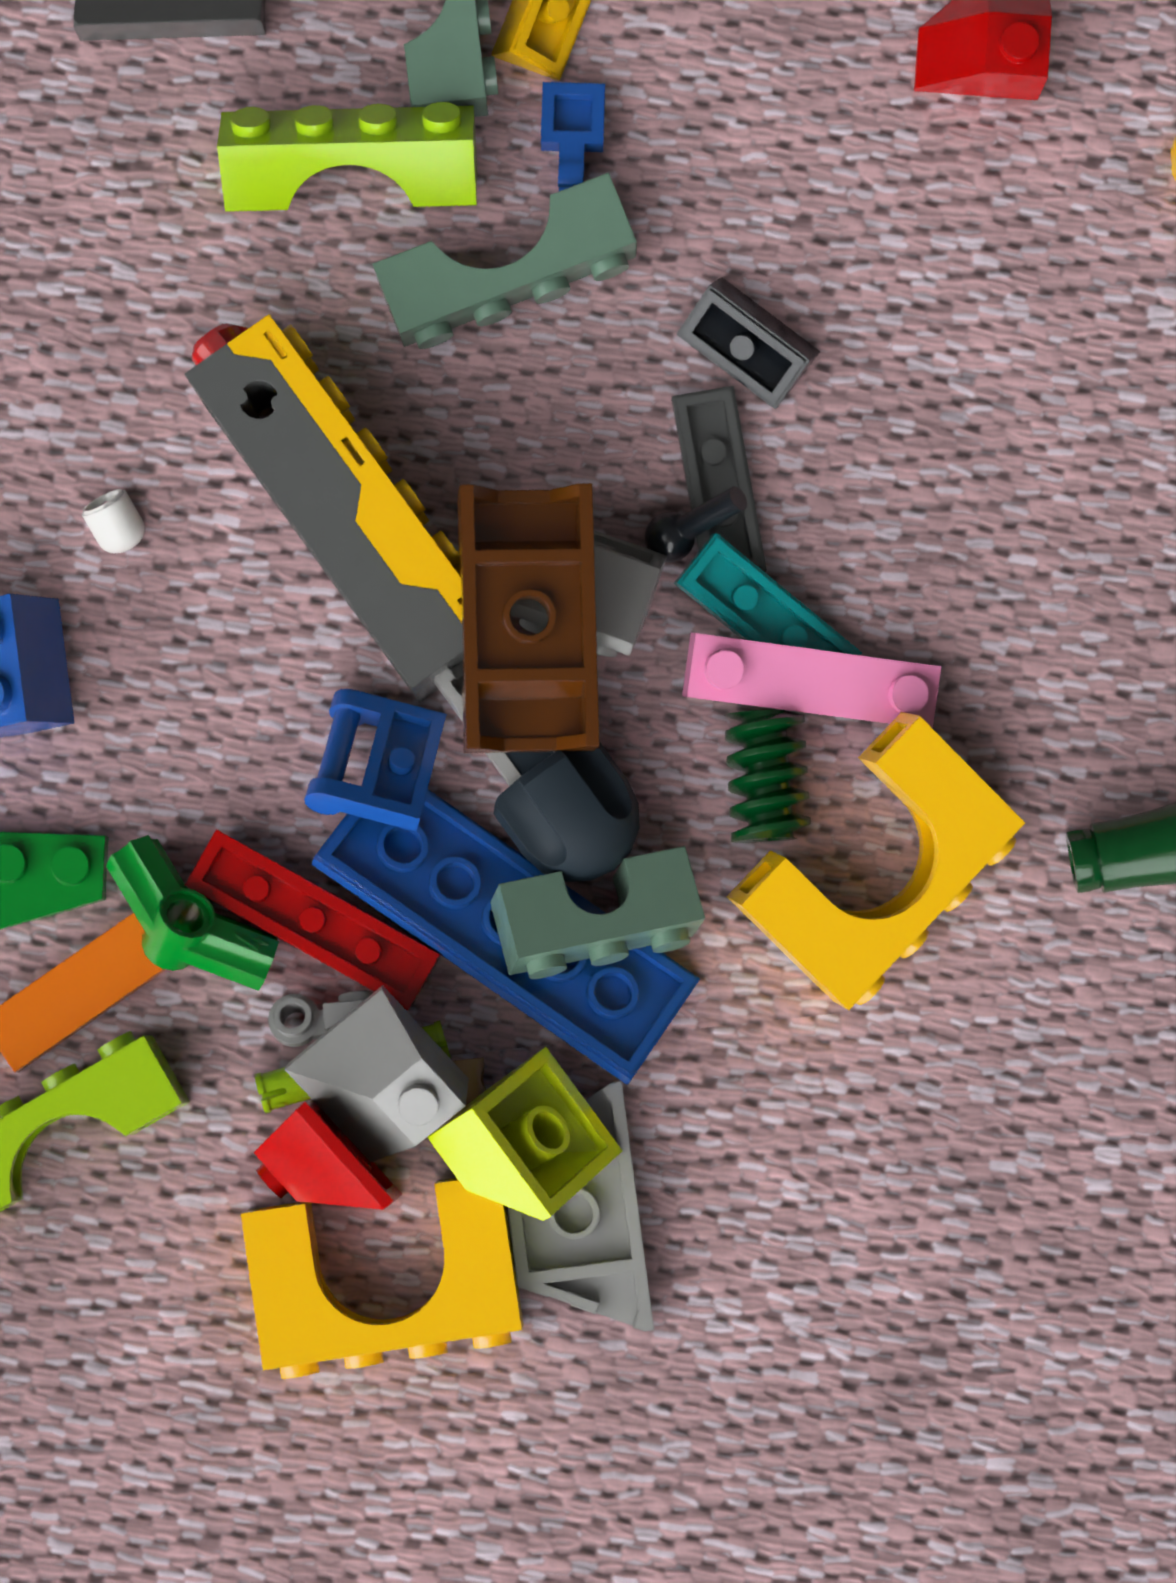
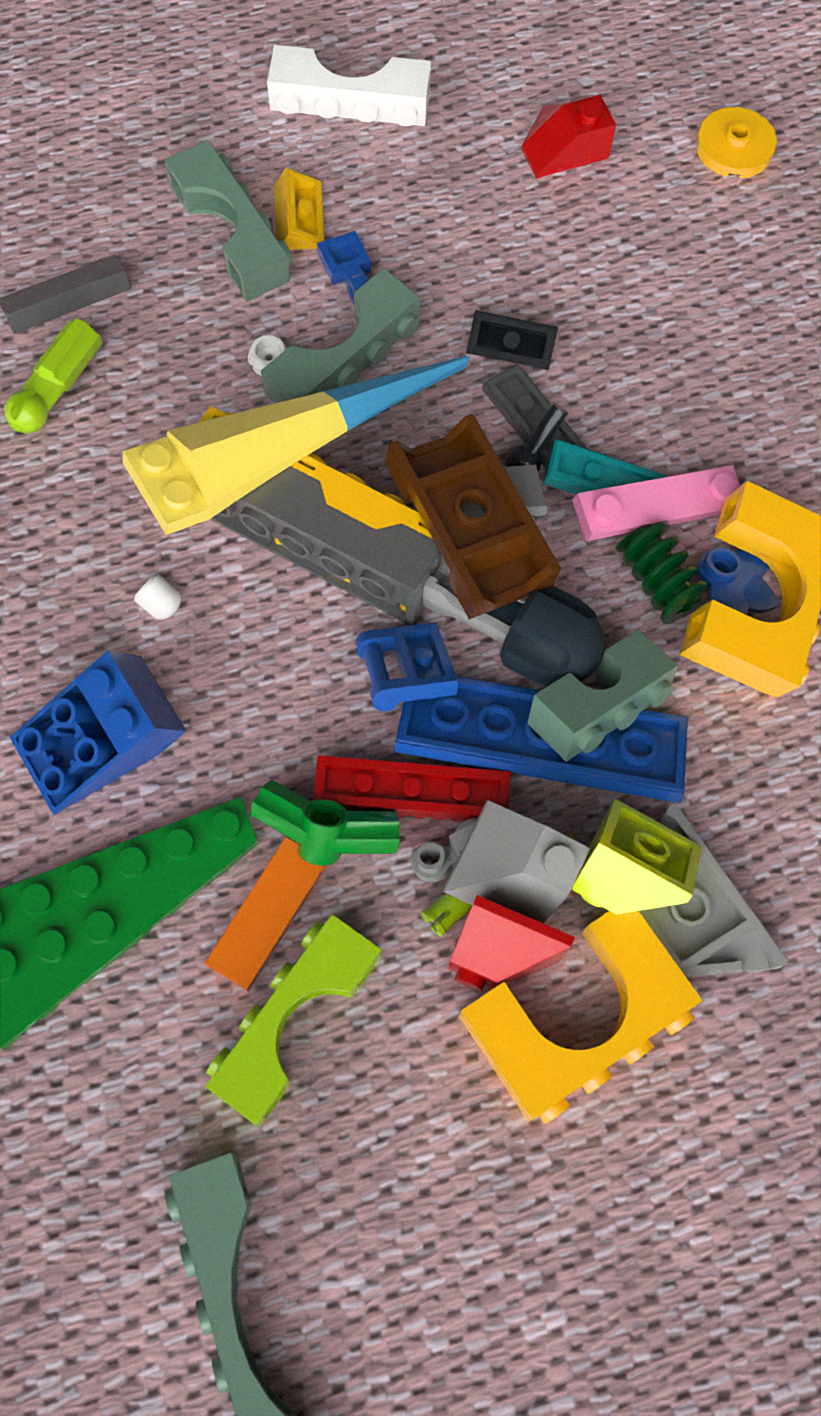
camera: 30 degrees left, 15 degrees down
(101, 141) = (52, 375): none -> lime piece
(243, 406) = (222, 459): none -> light yellow plate
(395, 216) = (262, 348): none -> white plate
(420, 148) = (167, 337): lime arch -> none
(864, 839) = (737, 580): none -> blue plate

